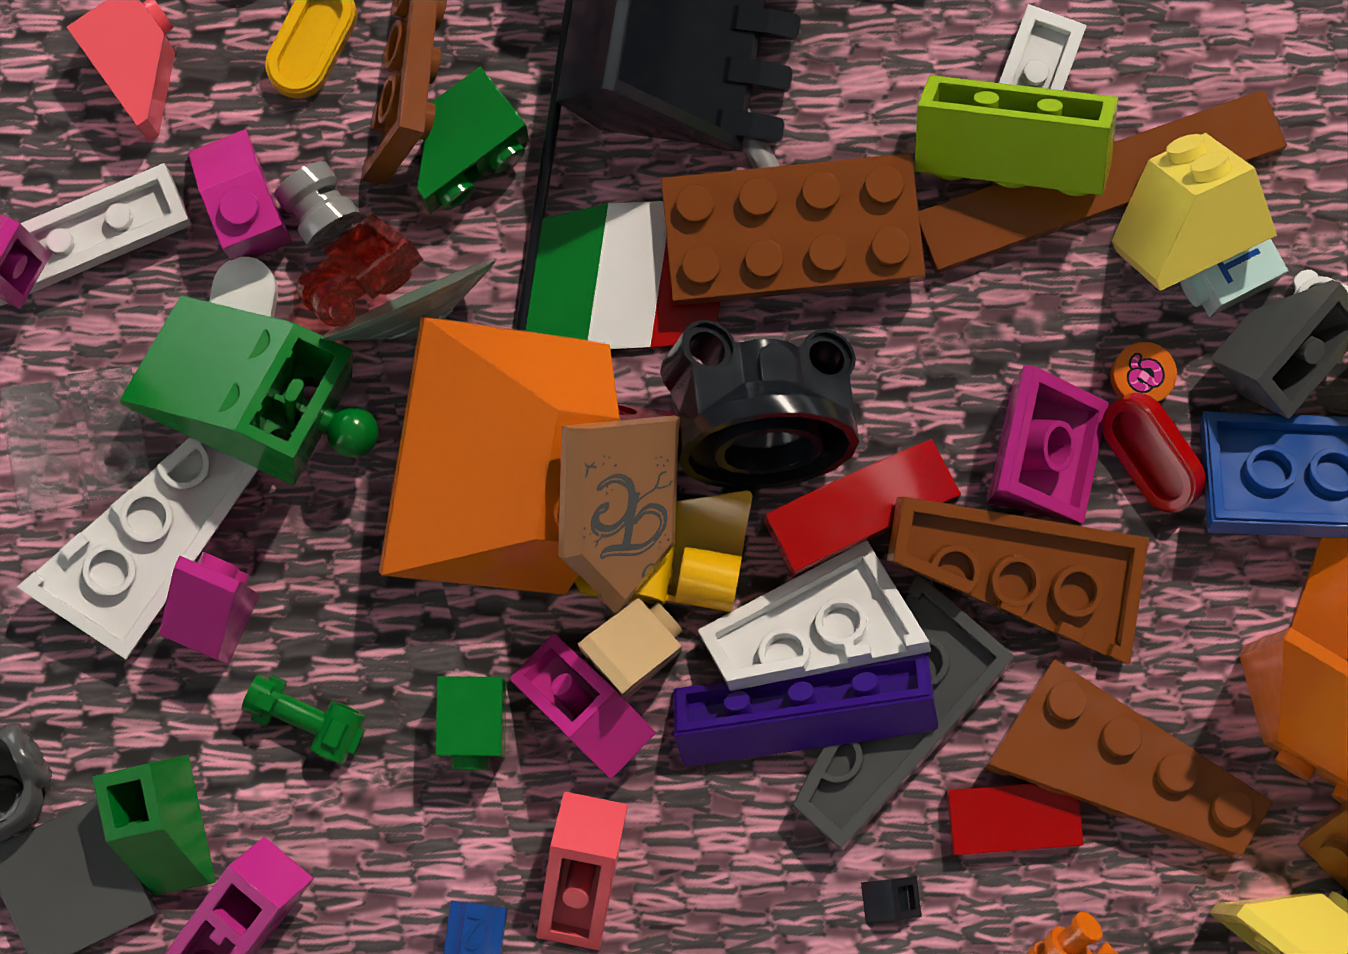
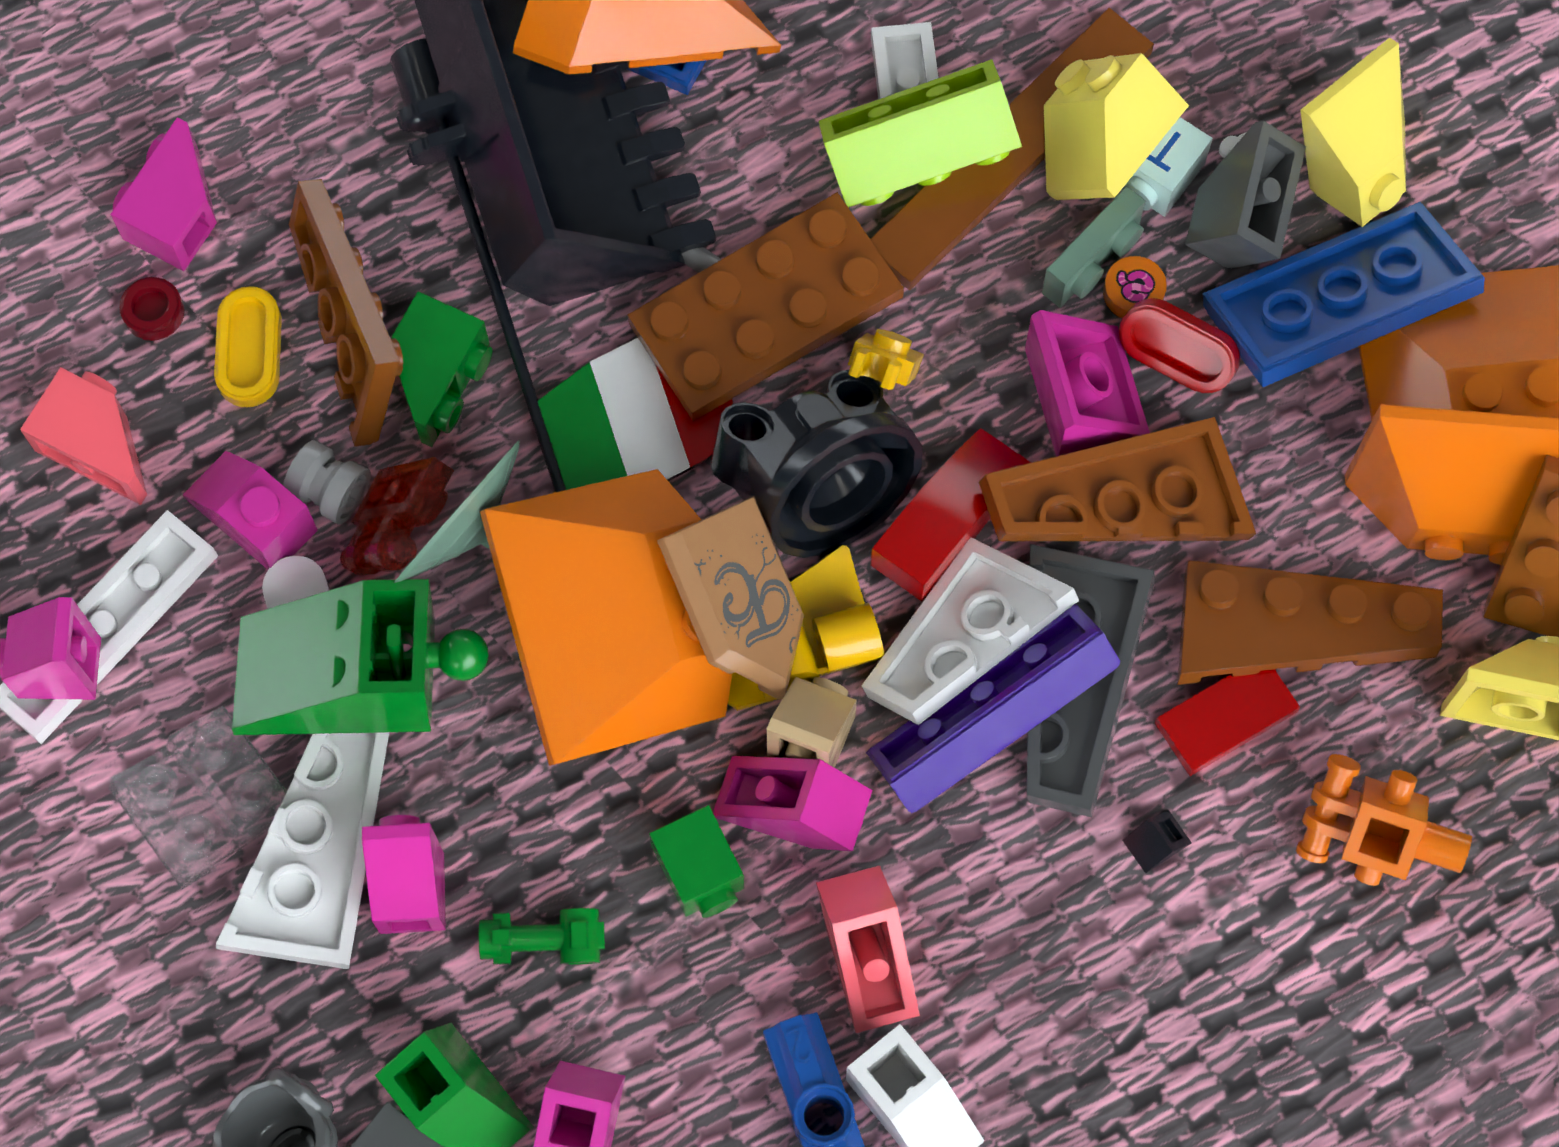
camera: 25 degrees left, 10 degrees down
(873, 335) = (885, 359): none -> yellow plate
(1100, 331) = (1079, 265): none -> sand green plate

